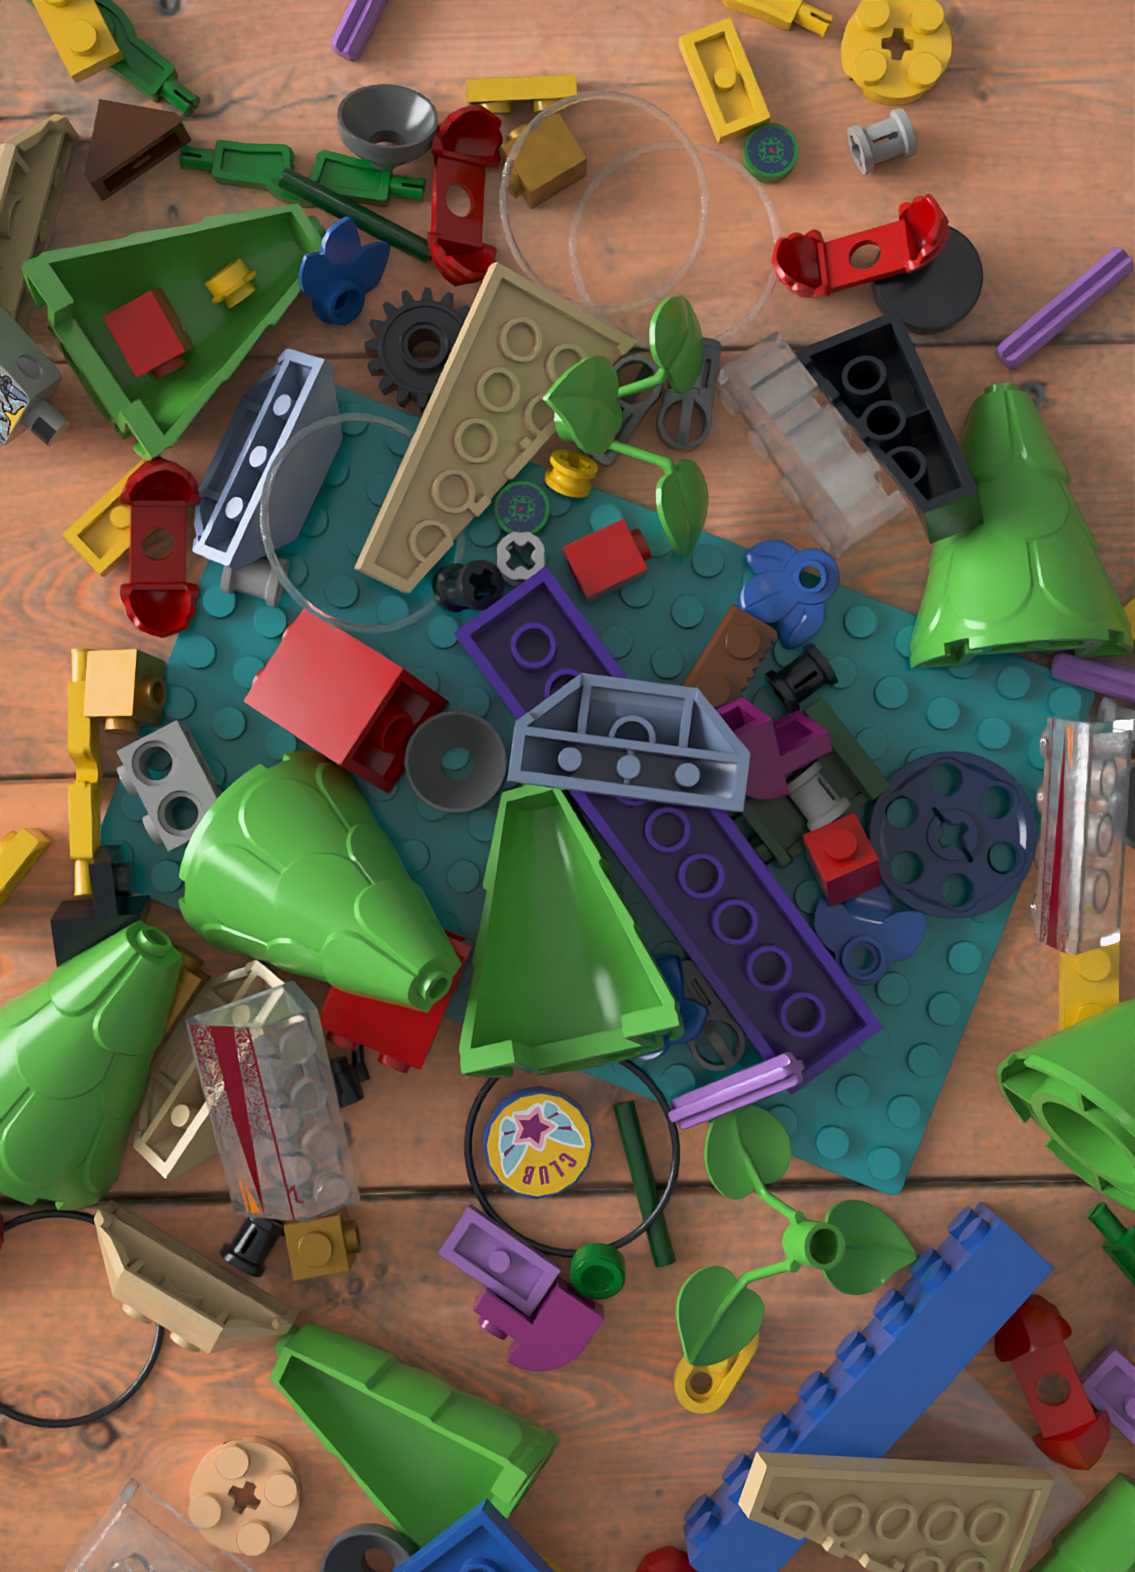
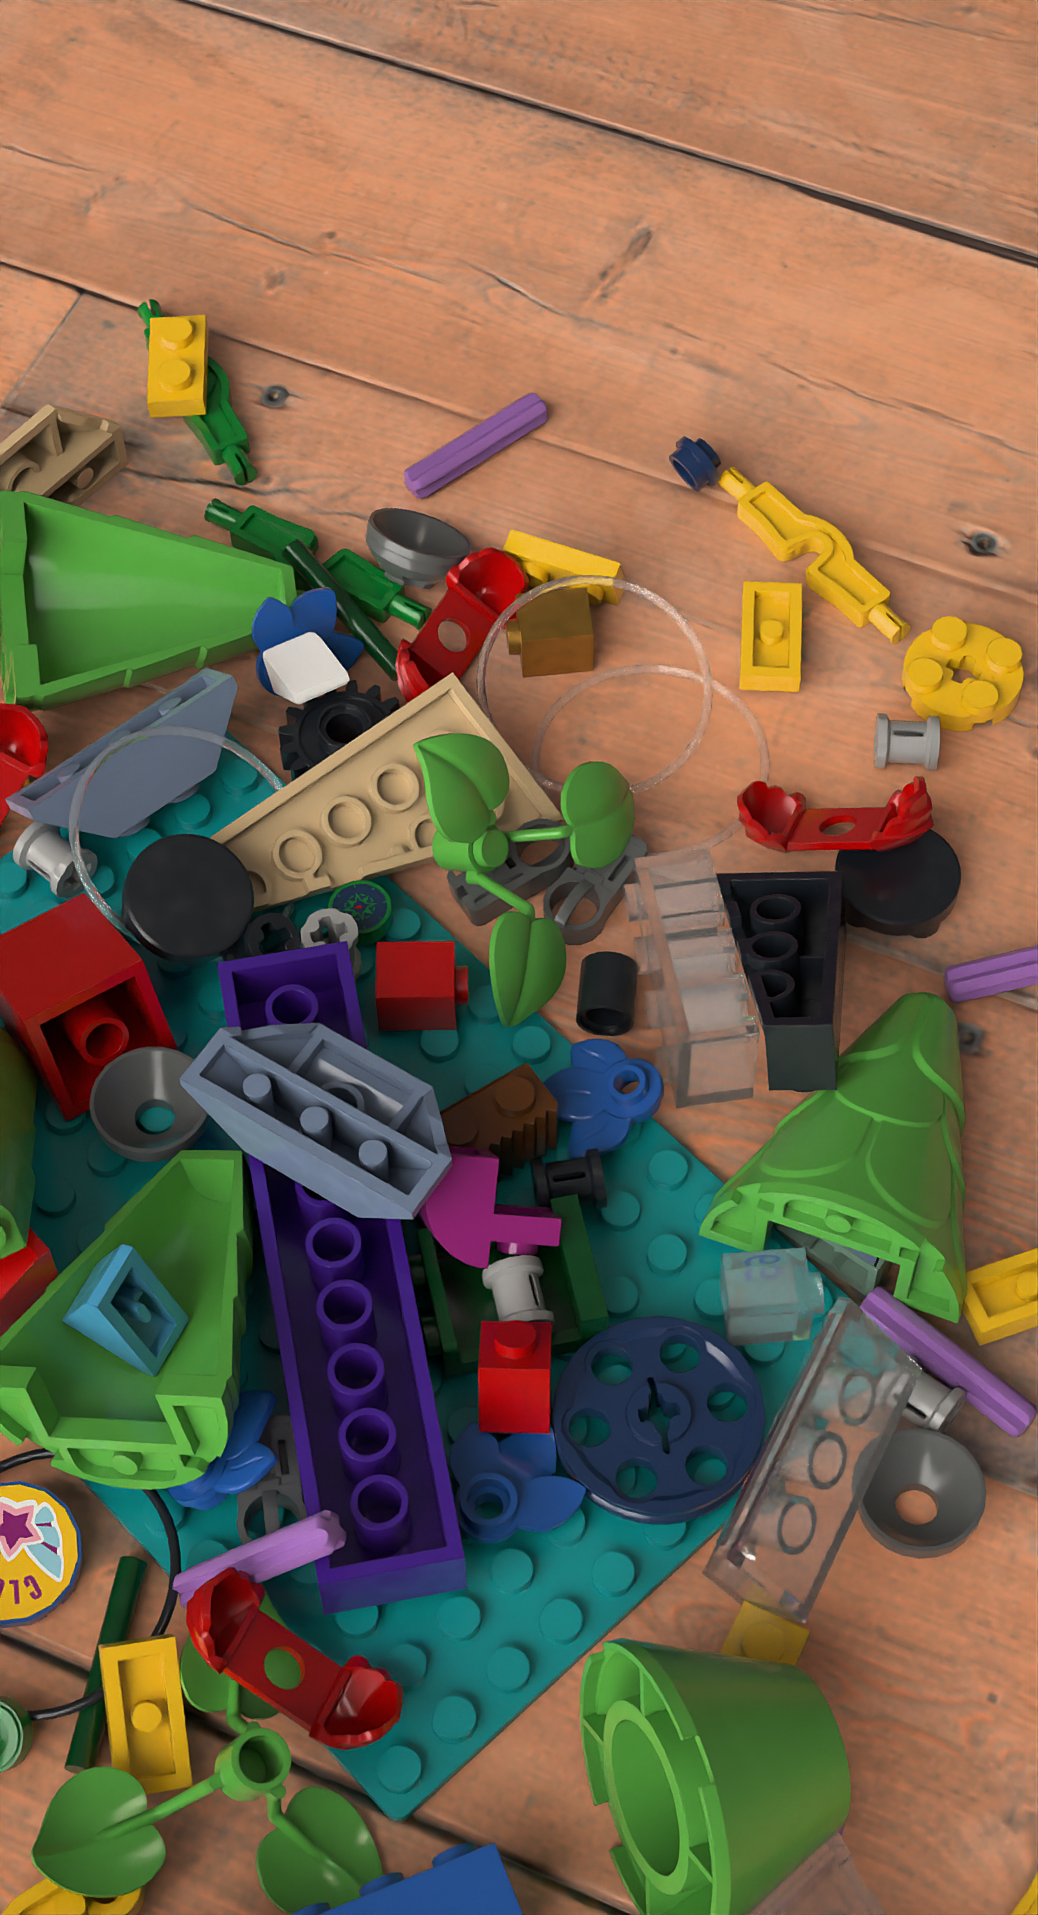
camera: 30 degrees right, 30 degrees down
(129, 143) = (166, 477): reddish brown slope -> none
(150, 334) = (85, 616): red brick -> none
(231, 283) = (190, 612): yellow plate -> none
(363, 304) = (303, 668): none -> white slope
(399, 585) = (187, 899): none -> black tile
(535, 950) = (128, 1311): none -> dark azure slope
(570, 473) = (430, 903): yellow bush -> none
(699, 1215) = (146, 1712): none -> yellow plate
(747, 490) = (607, 993): none -> black beam
(770, 152) = (788, 715): tile -> none
(834, 1149) = (333, 1703): none -> red piece
(992, 705) = (769, 1296): none -> clear brick

